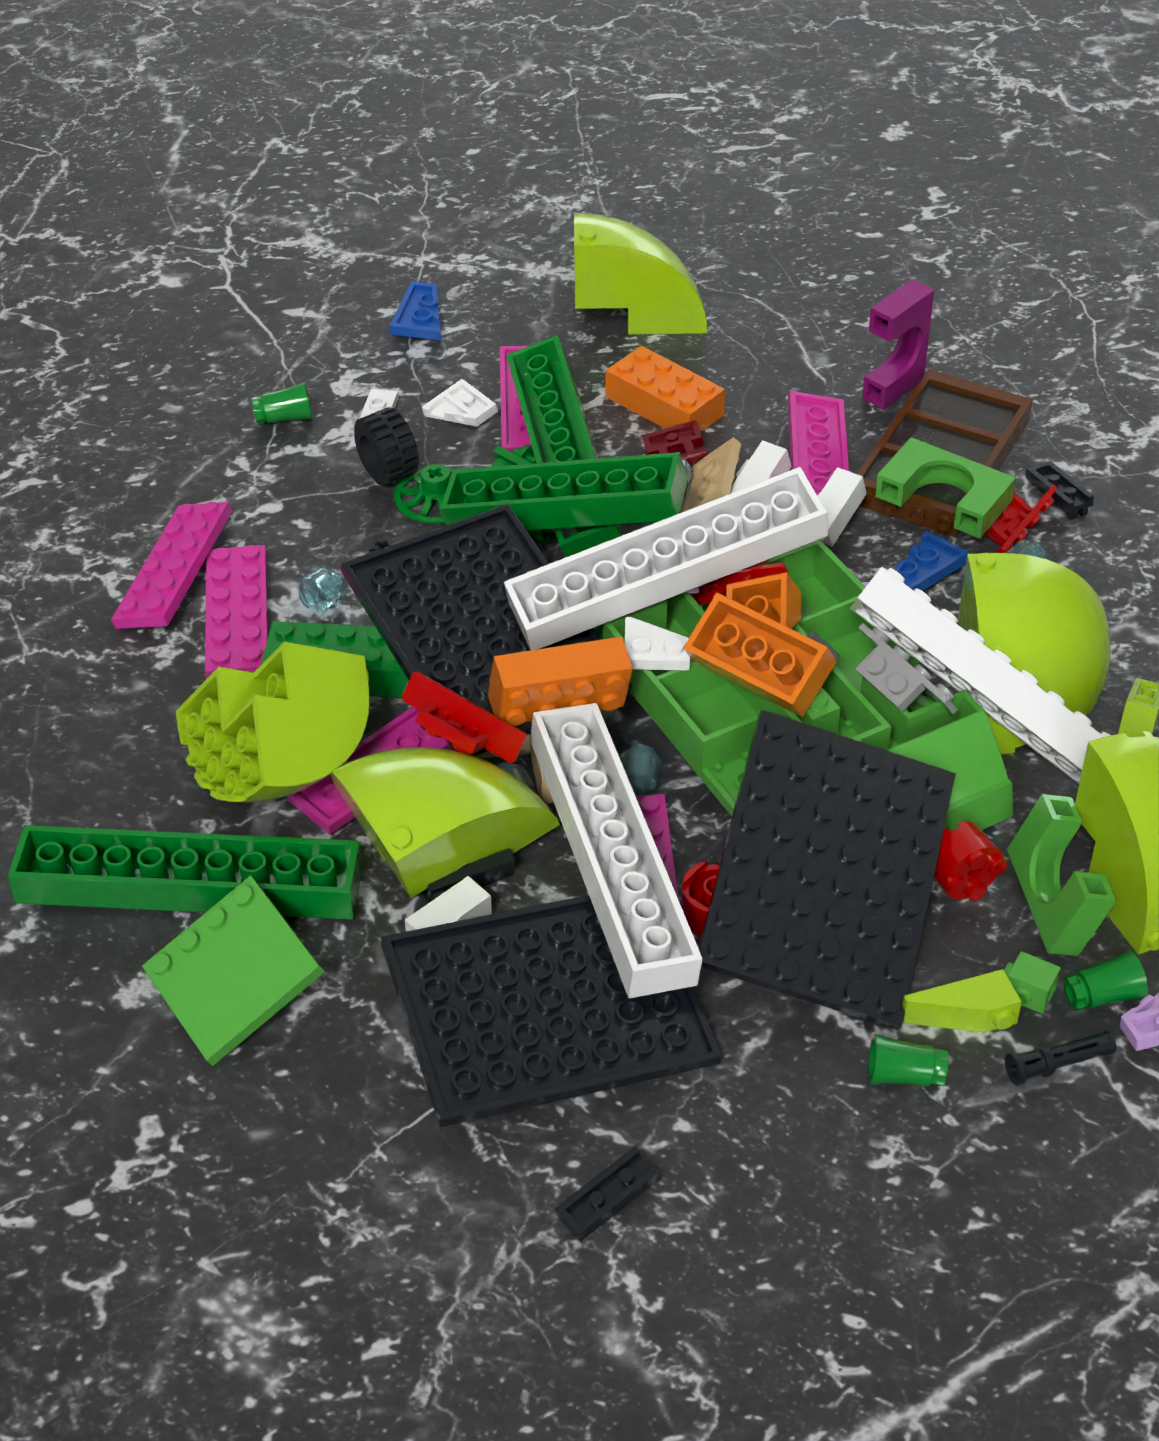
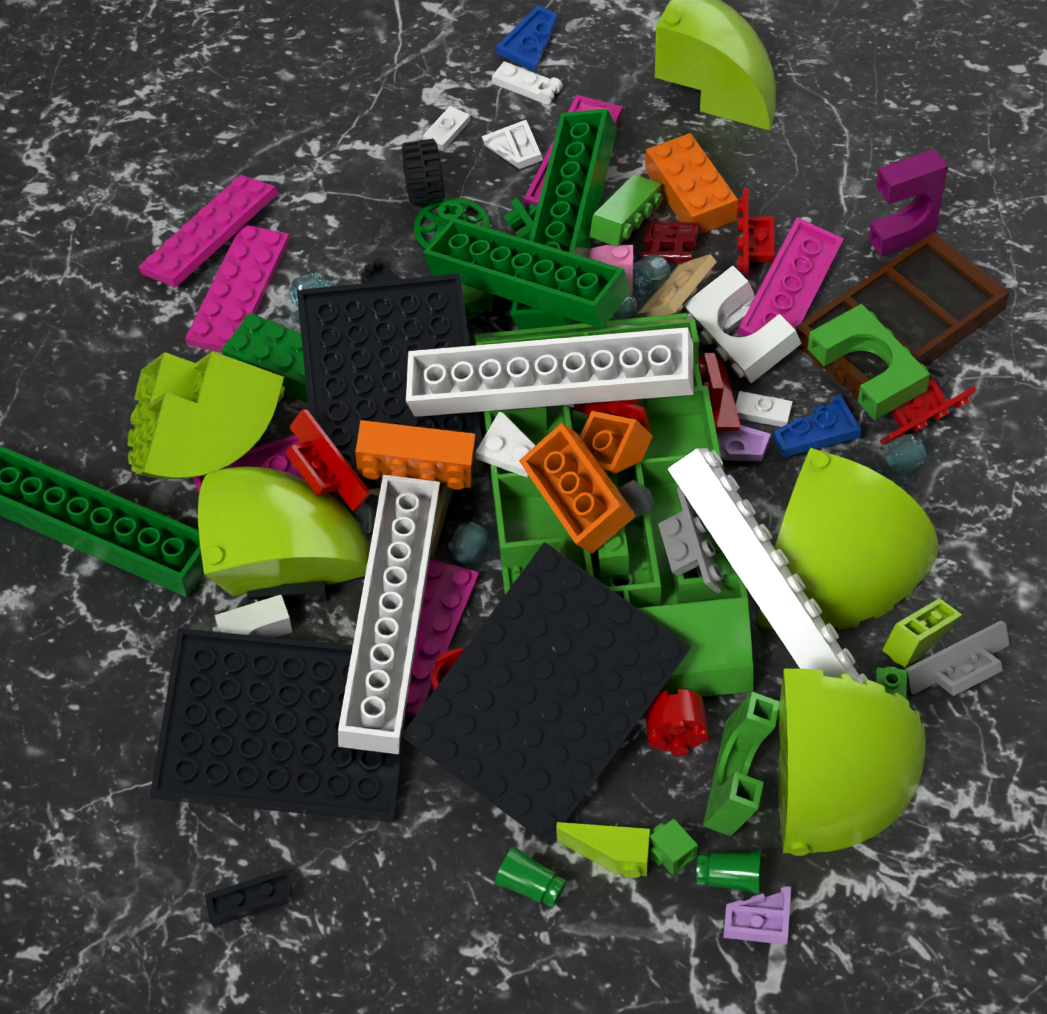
camera: 25 degrees right, 10 degrees up
(232, 970) = (71, 611): bright green plate -> none
(283, 405) = (369, 102): green plant -> none
(438, 351) = (526, 83): none -> white plate
(620, 426) = (625, 210): none -> bright green brick
(755, 417) = (757, 237): none -> red bracket
(865, 564) = (763, 409): none -> white plate
(1046, 1060) = (697, 922): black pin -> none
(1069, 493) = (988, 397): black hinge -> none

